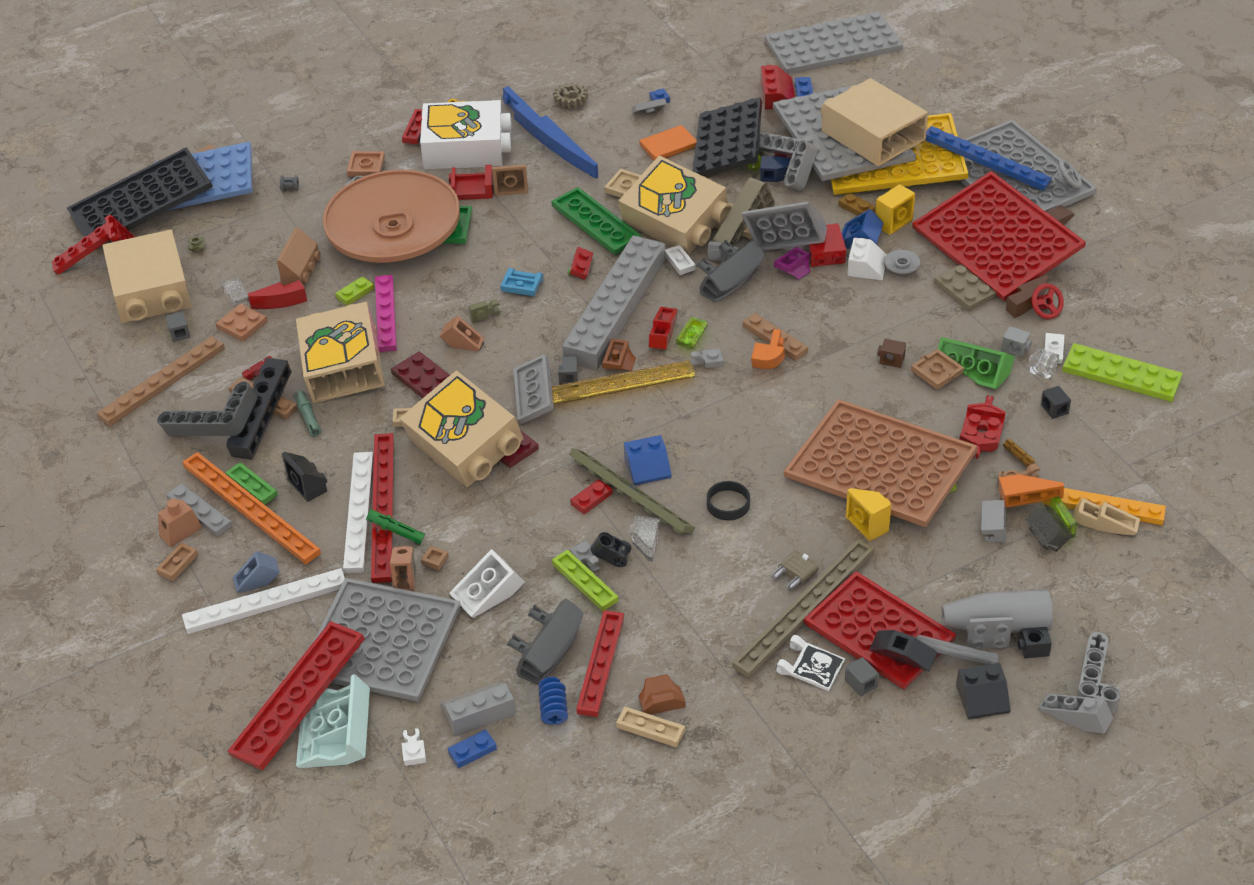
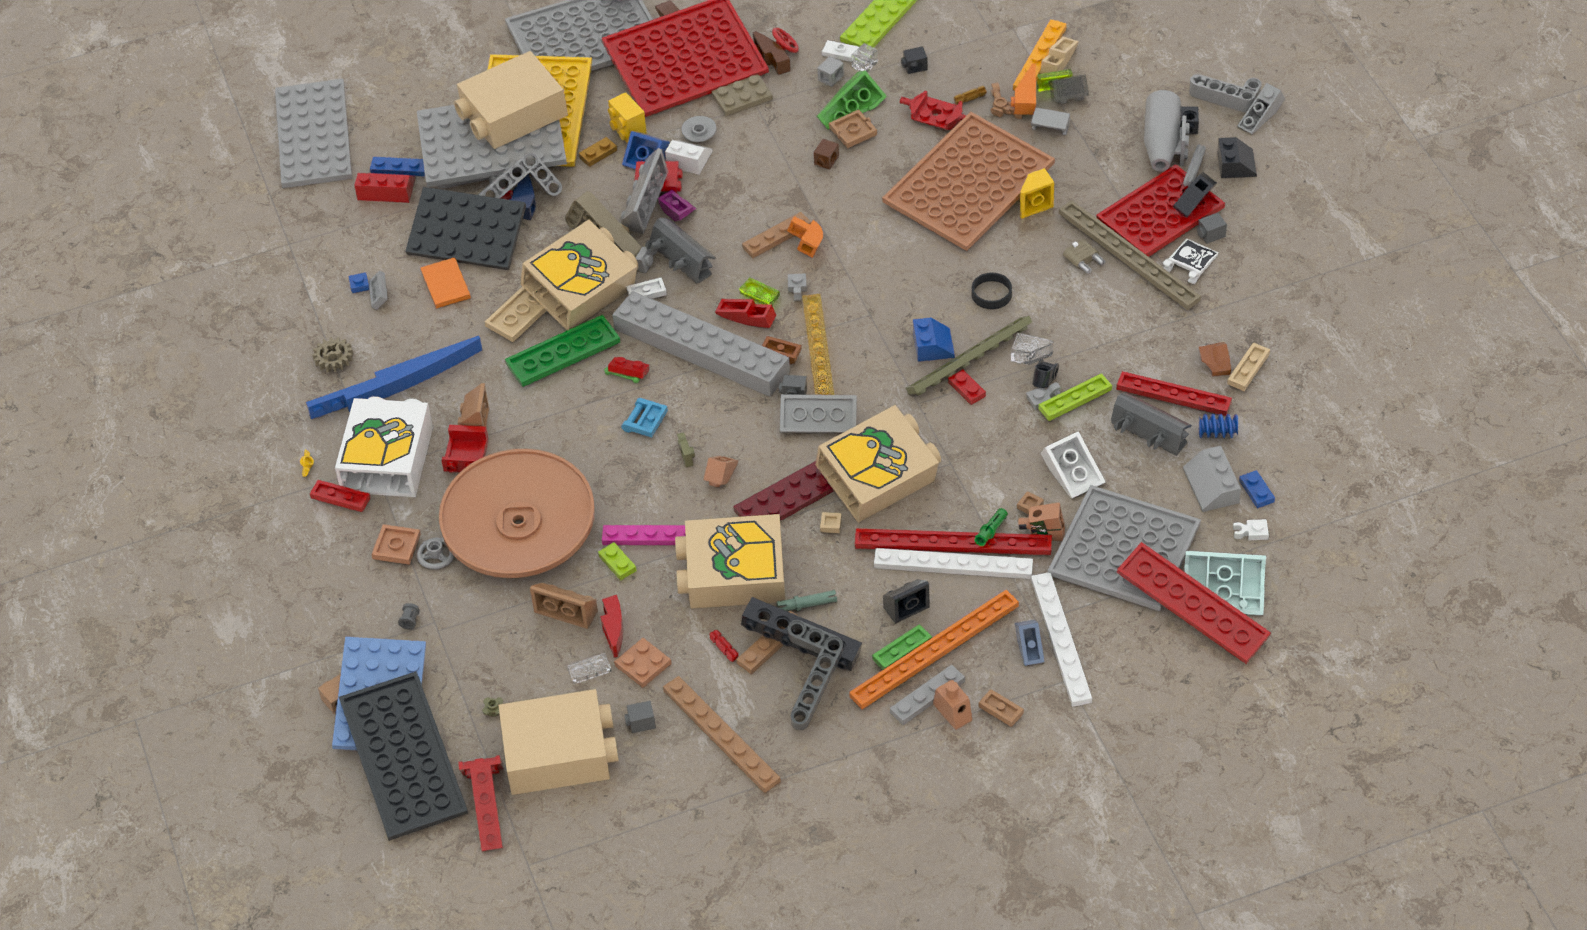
camera: 80 degrees left, 5 degrees up
(988, 158) = (581, 35): blue plate -> none

